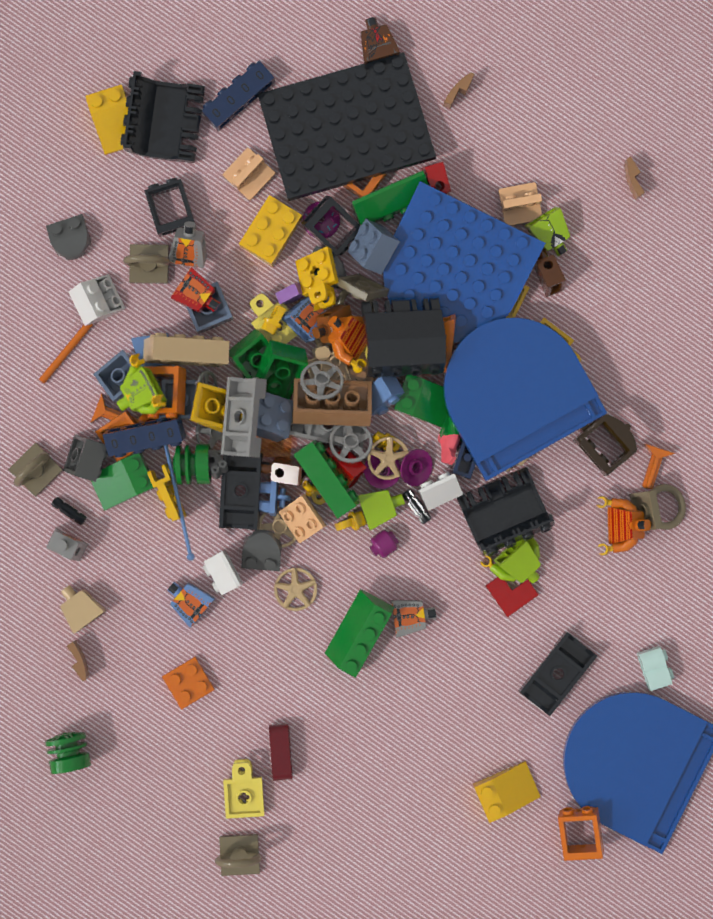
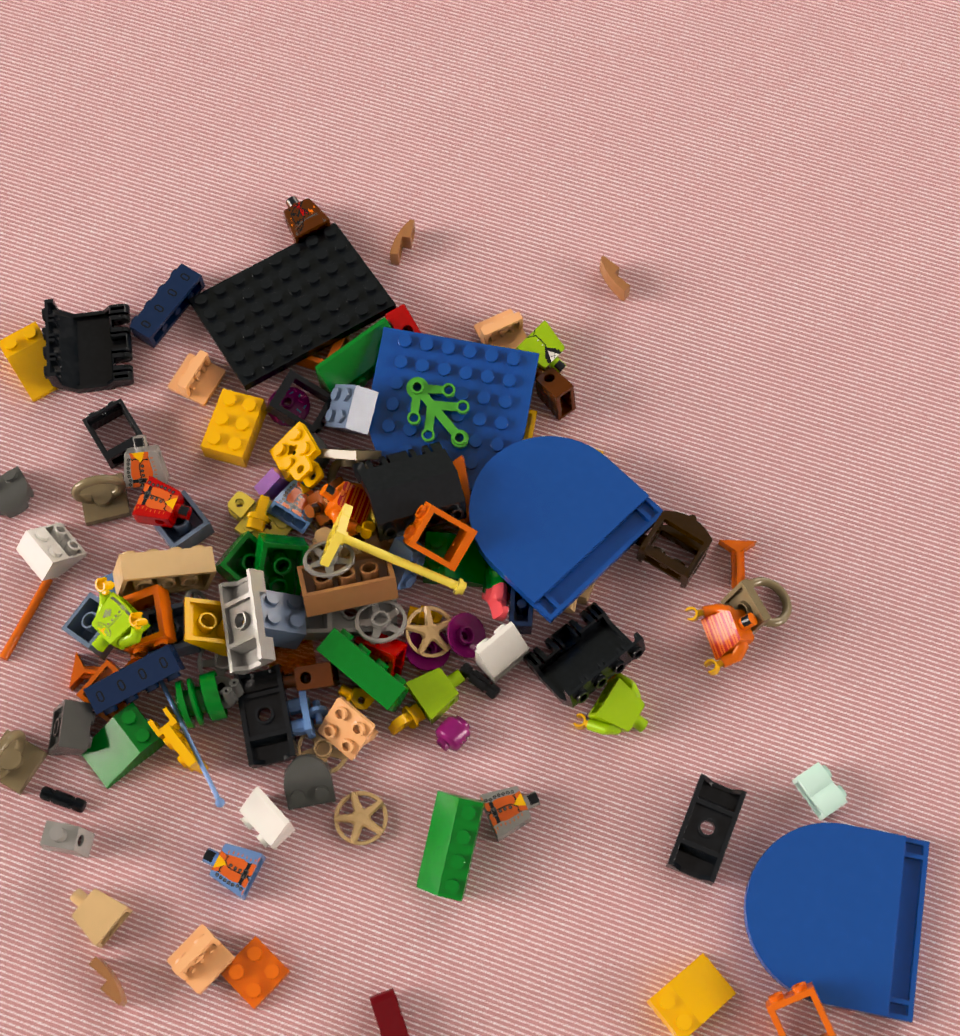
camera: 10 degrees left, 20 degrees down
(149, 663) = (200, 959): none -> light nougat bracket
(333, 370) = (339, 536): none -> light yellow tile
(428, 399) = (459, 545): none -> orange window
(443, 269) = (436, 409): none -> bright green plant
(509, 599) = (621, 758): red tile -> none

